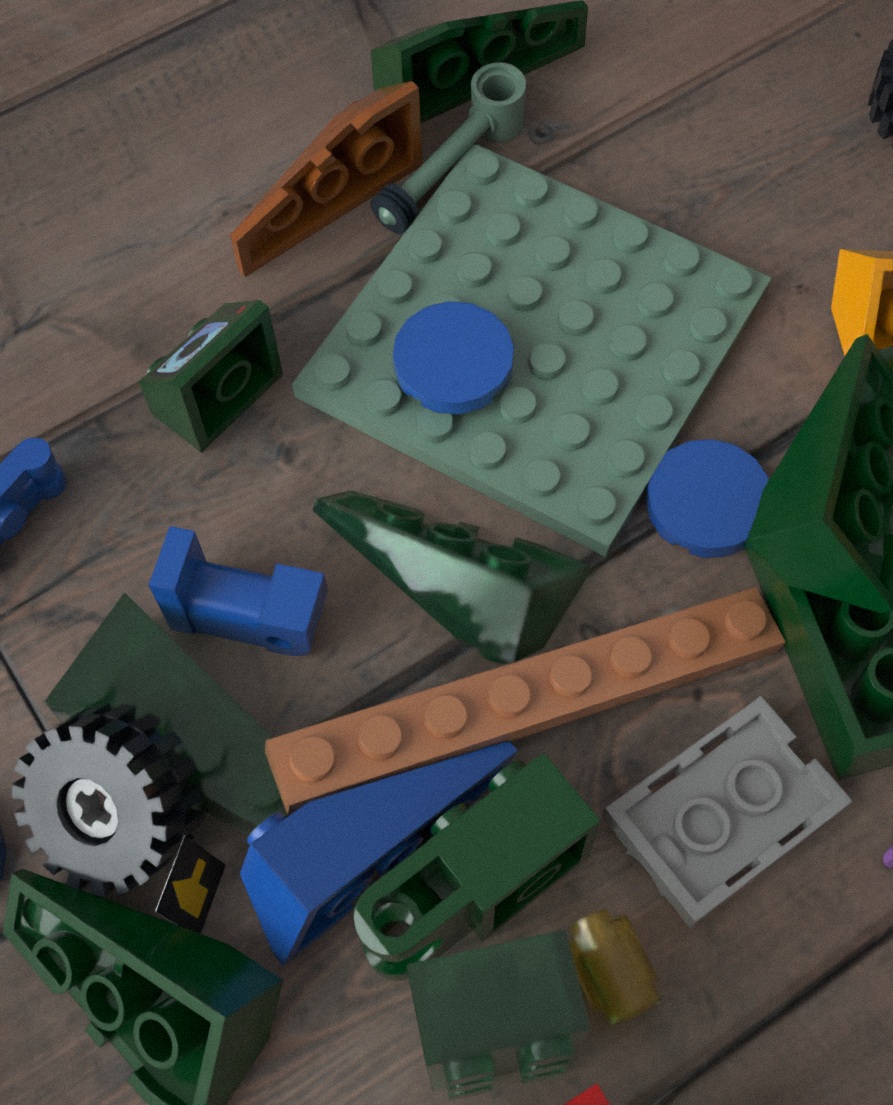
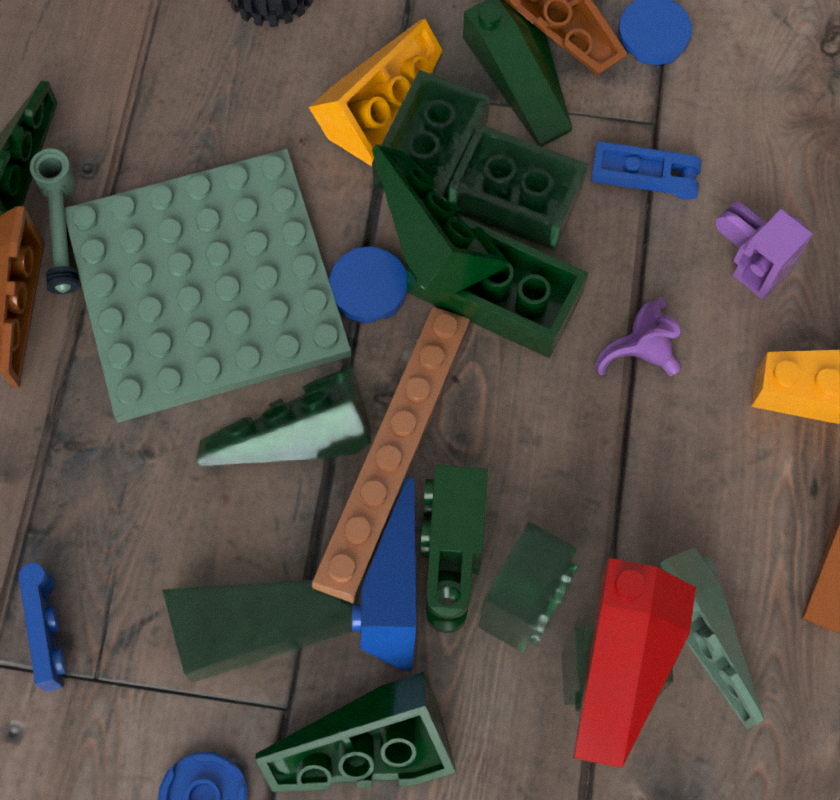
camera: 50 degrees left, 5 degrees up
(144, 793) = (259, 655): bush -> none
(190, 886) = (338, 680): black sticker -> none
(214, 372) = (69, 448): dark green slope -> none
(236, 602) = (217, 540): blue piece -> none
(453, 357) = (184, 328): blue tile -> none
(613, 967) = (545, 517): clear yellow brick -> none
(724, 811) = (520, 417): light grey piece -> none

